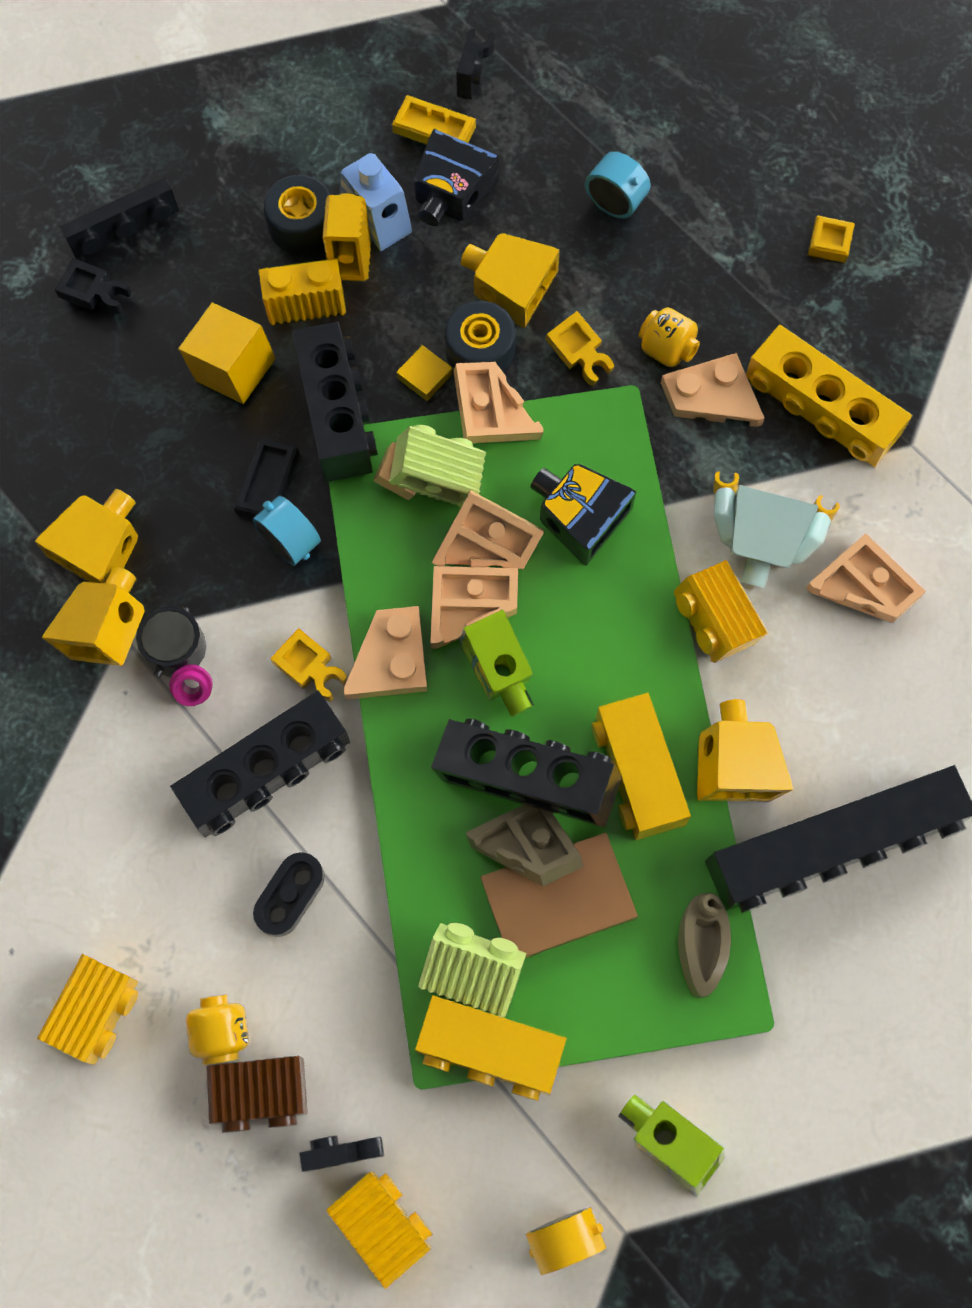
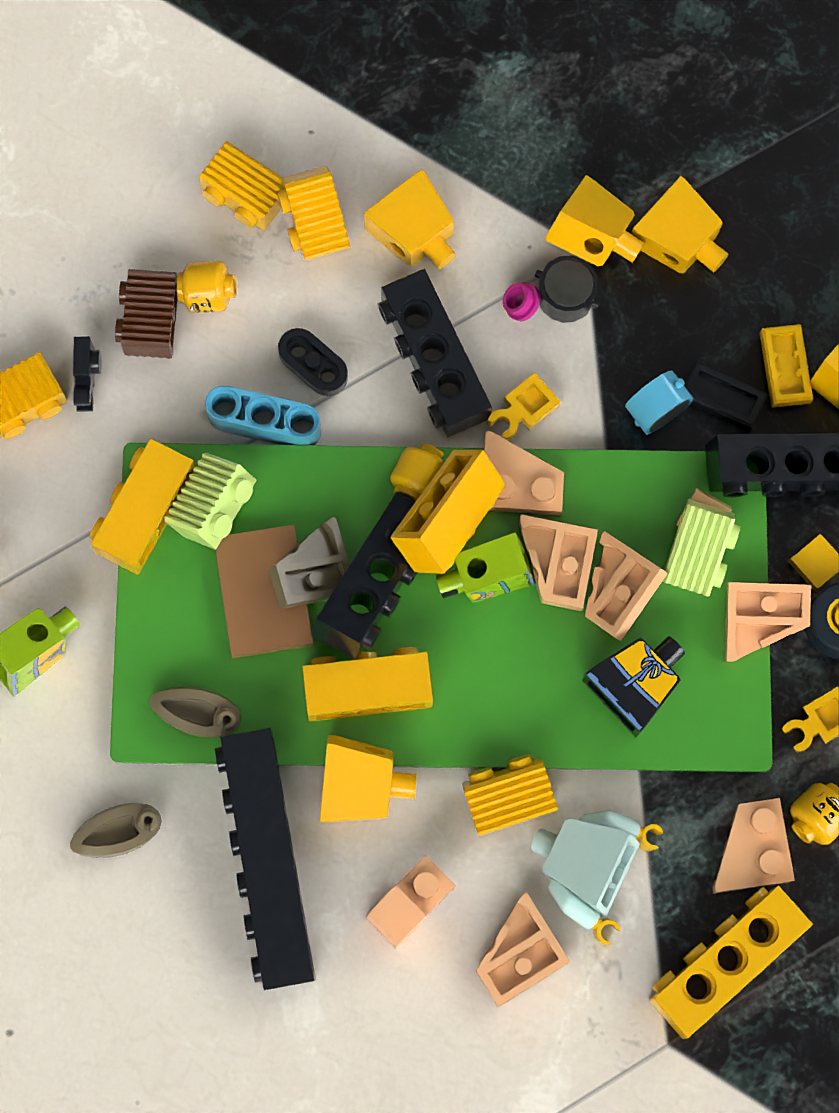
camera: 95 degrees right, 5 degrees up
(113, 812) = (413, 222): none -> yellow torso
(115, 919) = (314, 213): none -> yellow brick
(227, 423) = (786, 366): none -> yellow plate
(356, 914) = (250, 403): none -> medium azure beam
(403, 753) = (415, 470): none -> yellow head
(448, 704) = (448, 511): none -> yellow brick
(846, 1008) = (116, 831): none -> dark tan arm
(858, 689) = (410, 902): none -> light nougat brick

